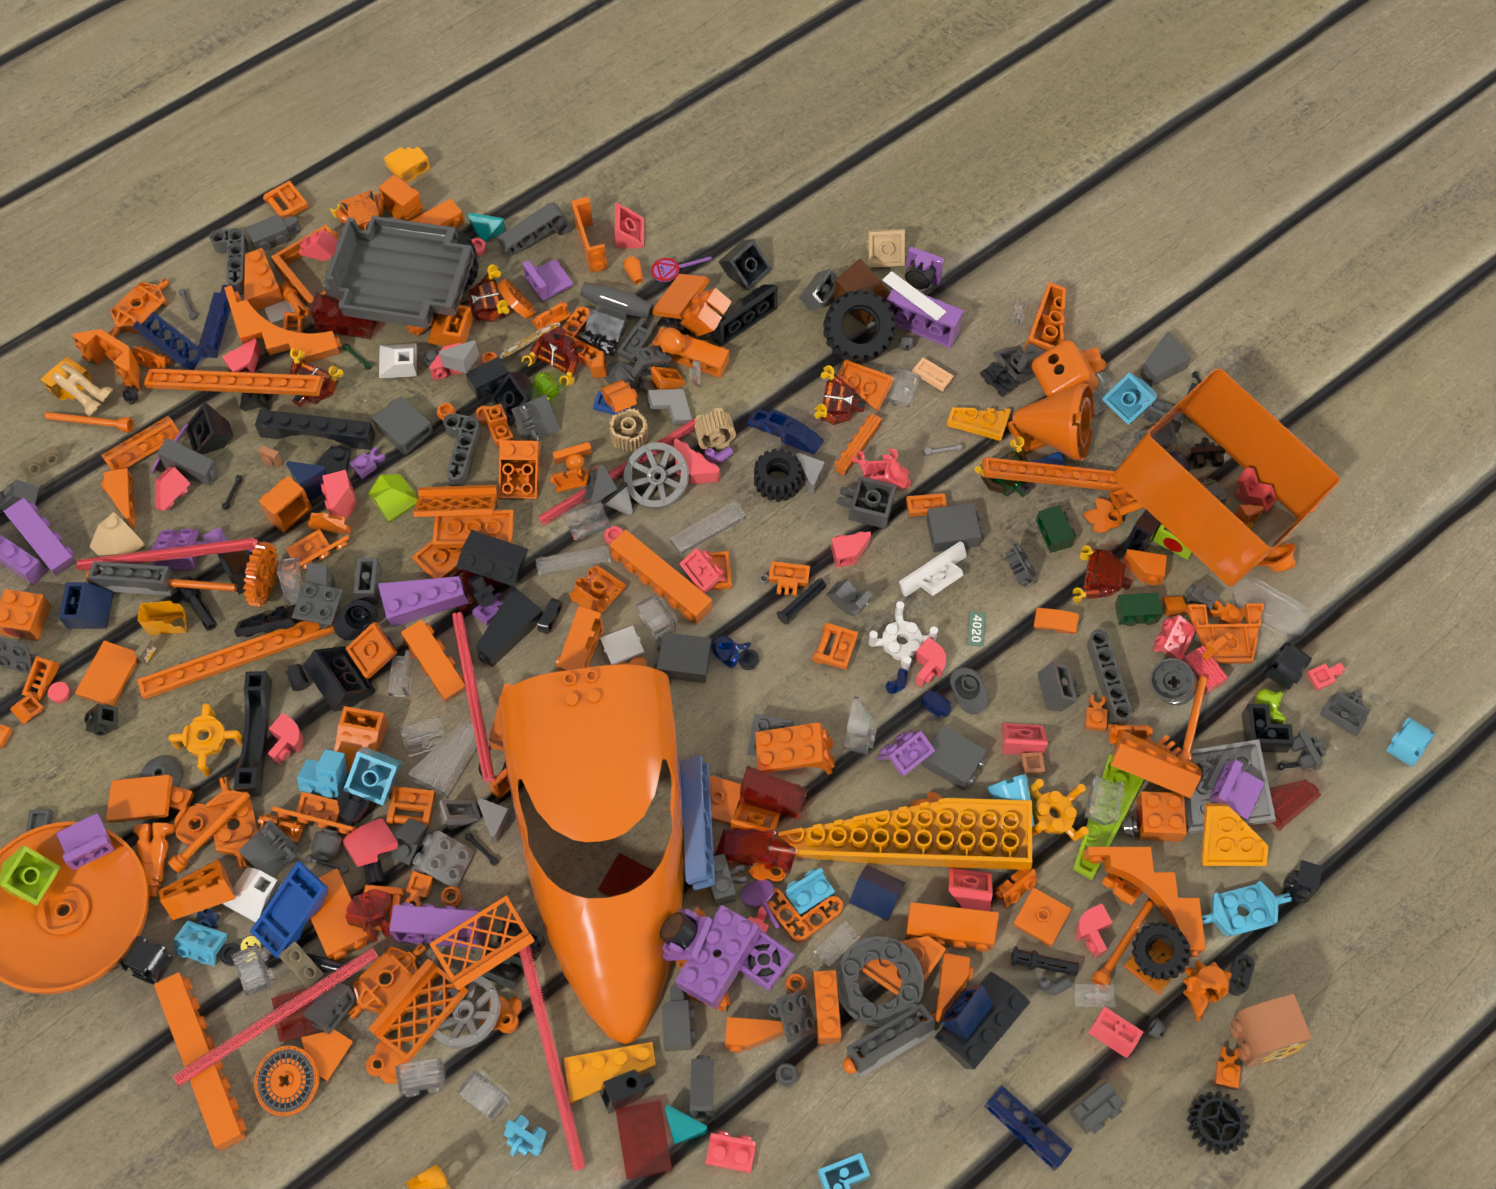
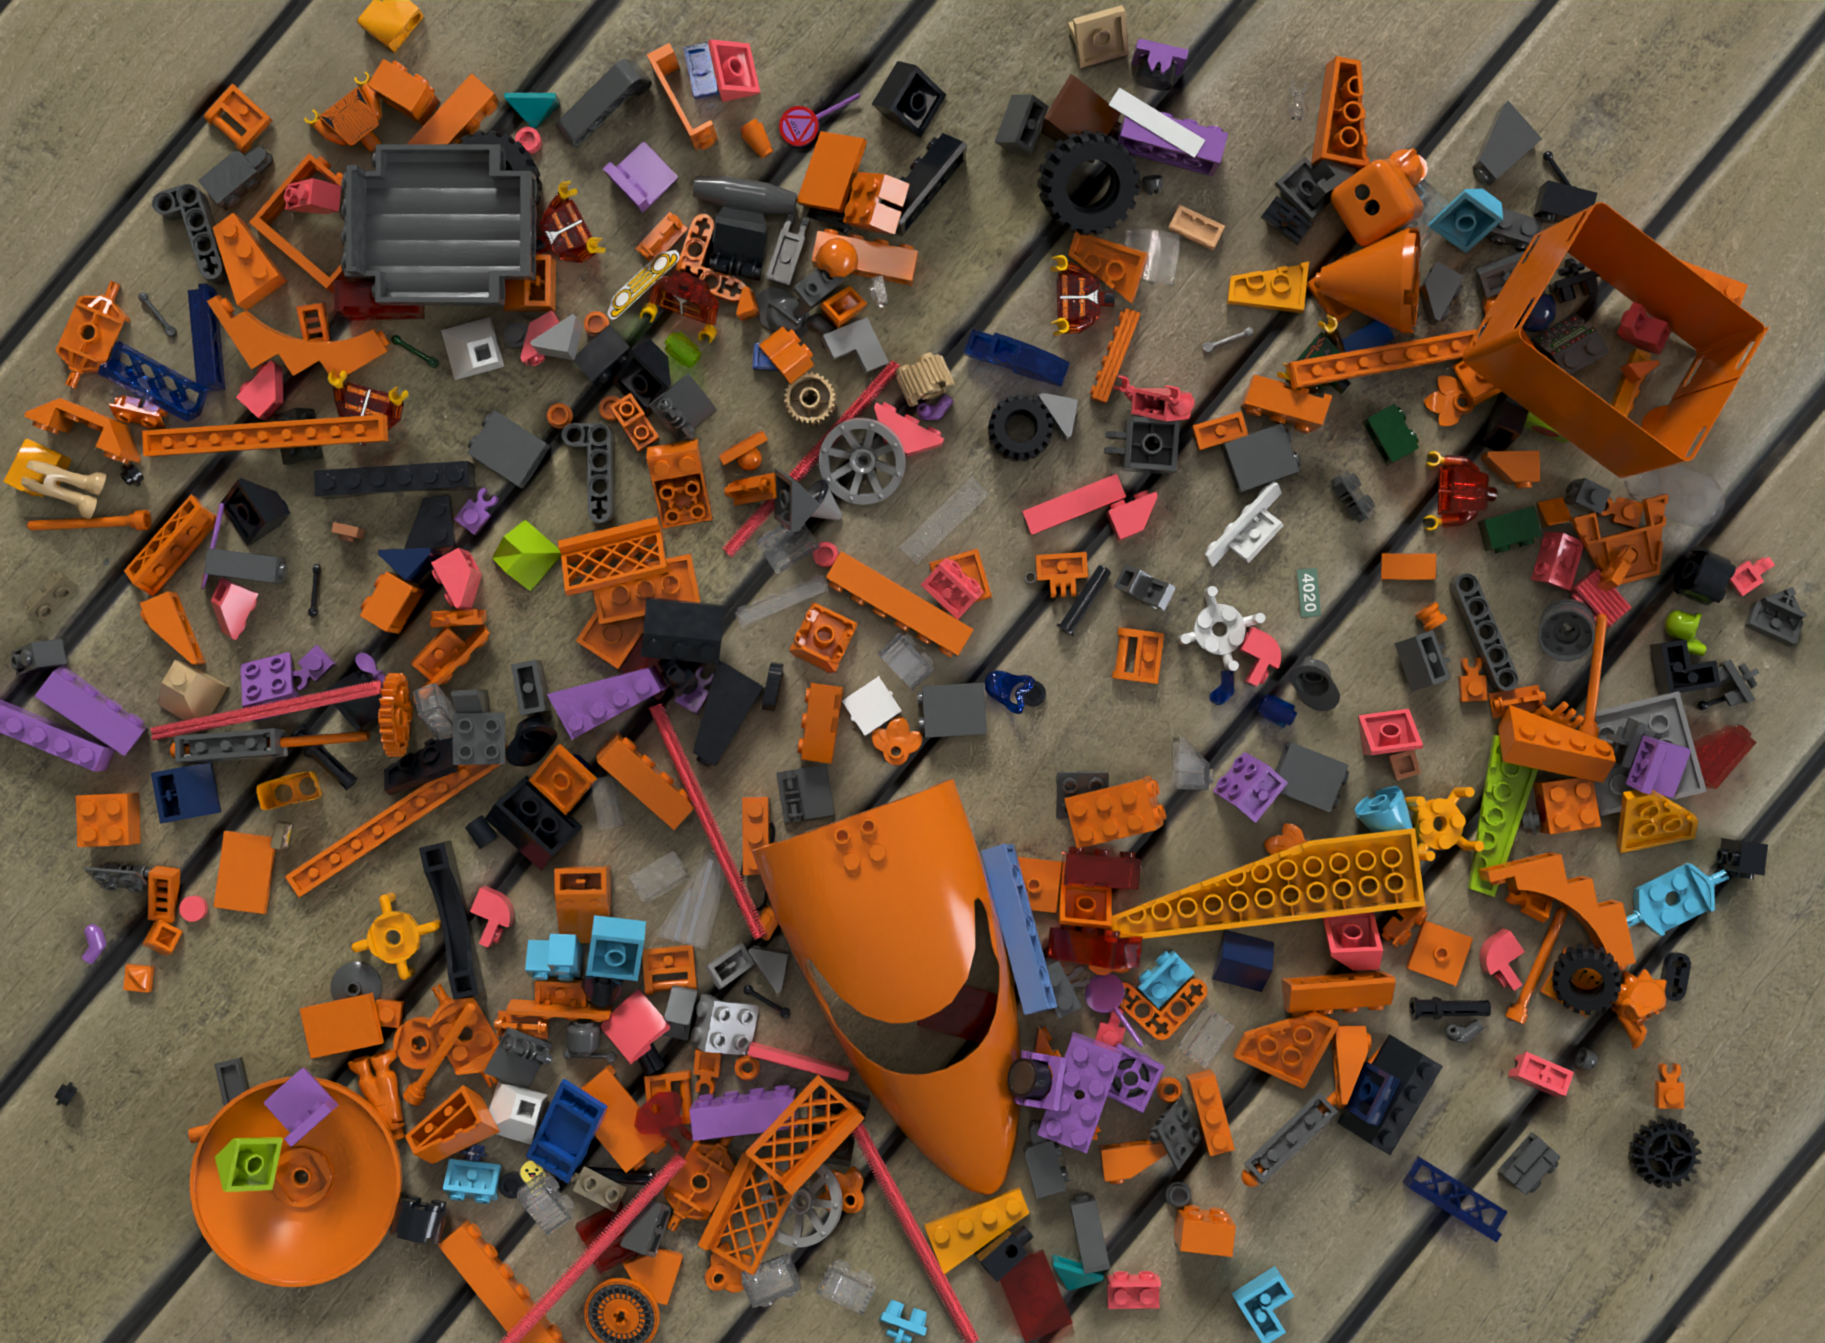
camera: 10 degrees left, 25 degrees up
(101, 719) = (260, 938): pearl dark grey brick -> none
(276, 311) = (289, 296): white sticker -> none
(291, 296) = (297, 277): orange pin -> none
(491, 896) = (798, 1061): none -> coral tile
(516, 299) = (607, 223): orange piece -> none
(606, 226) = (701, 70): none -> clear blue plate
(802, 1103) = (1204, 1231): none -> orange brick
(806, 535) = (1074, 504): none -> coral tile
(851, 966) = (1274, 1107): dark grey plate -> none
(986, 495) = (1285, 404): none -> orange wedge
(1069, 657) = (1431, 616): none -> orange wheel
(1094, 995) = (1512, 1039): clear hips -> none
(1104, 441) = (1438, 290): none -> dark grey slope
(1104, 801) = (1499, 803): clear bracket -> none
(1270, 1031) = (1720, 1056): nougat brick -> none

